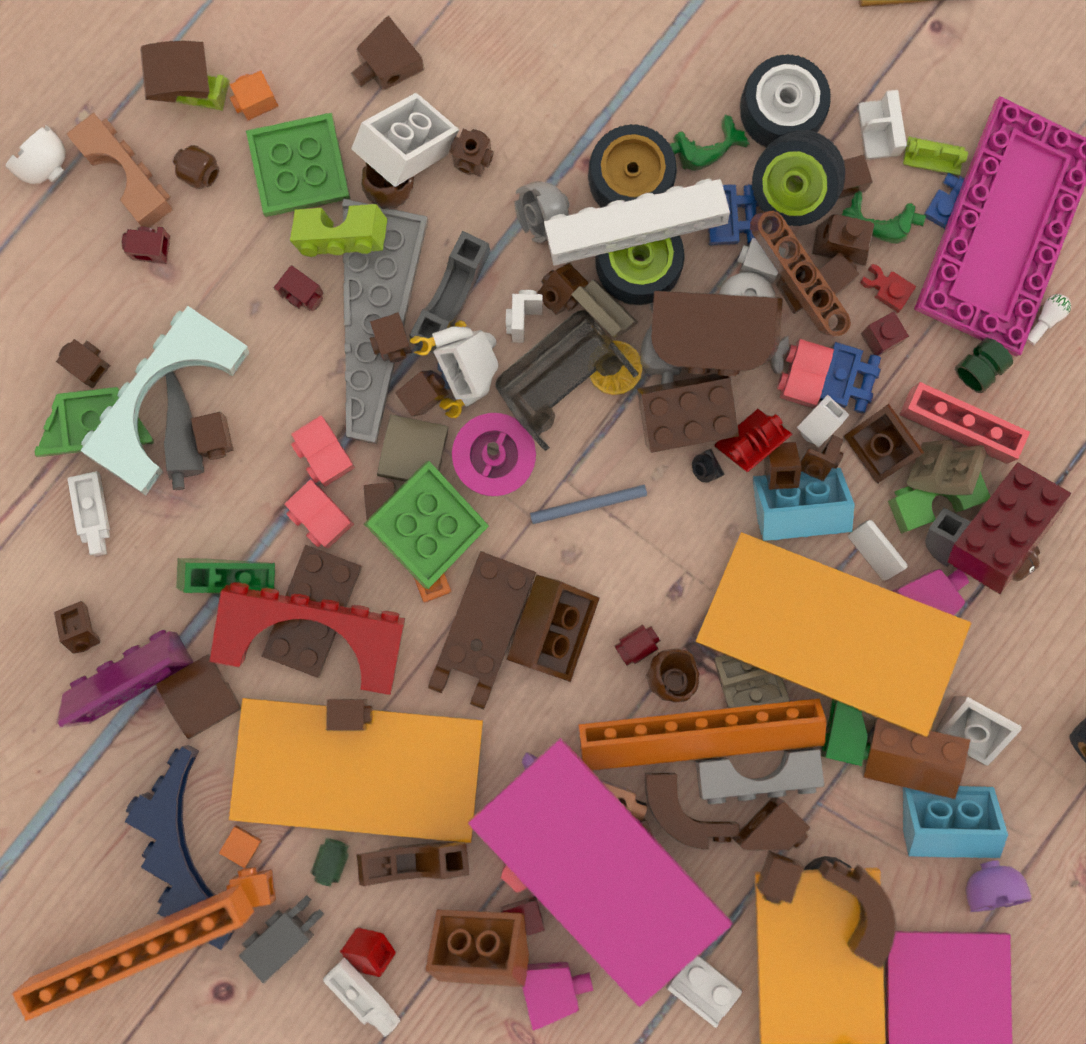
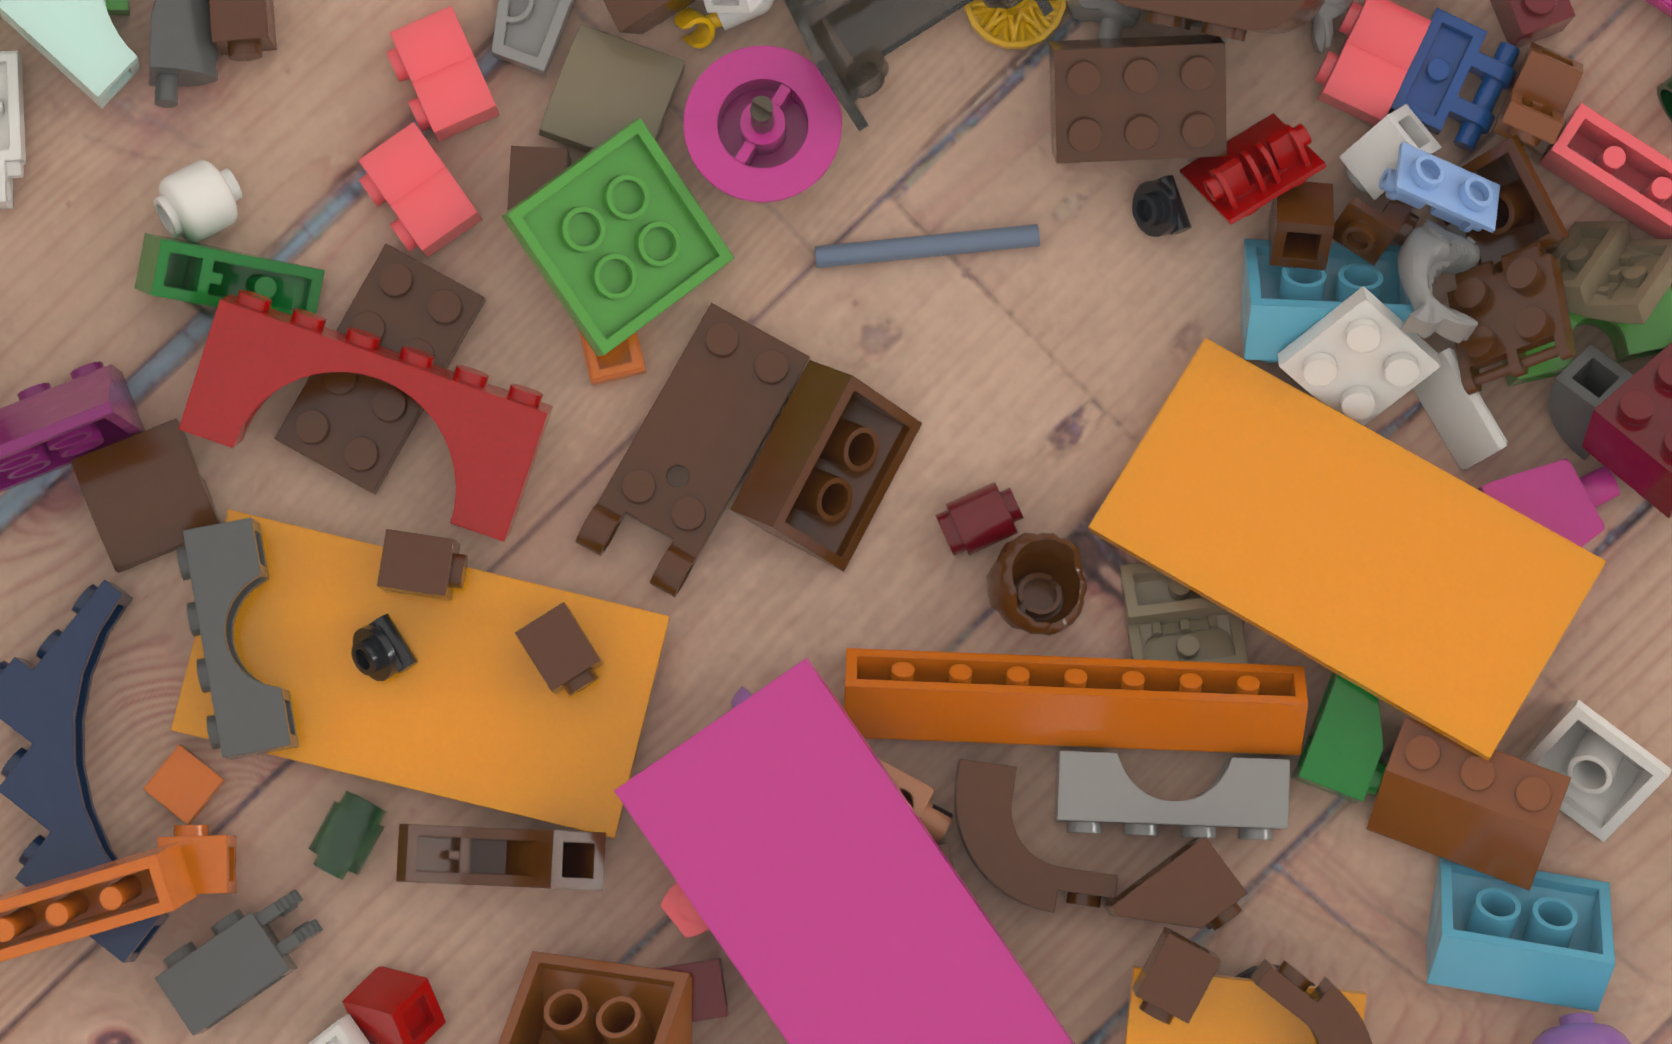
camera: 10 degrees right, 0 degrees up
(203, 537) = (198, 201): none -> white head
(267, 805) = (224, 568): none -> dark grey arch
(333, 762) = (381, 650): none -> black plate
(428, 749) = (561, 650): none -> reddish brown brick
(824, 532) = (1359, 358): none -> white plate
(847, 476) = (1422, 259): none -> light grey animal
(857, 437) = (1449, 189): none -> light blue hinge
(895, 381) = (1538, 98): none -> dark orange brick
(899, 499) = (1514, 314): none -> reddish brown plate

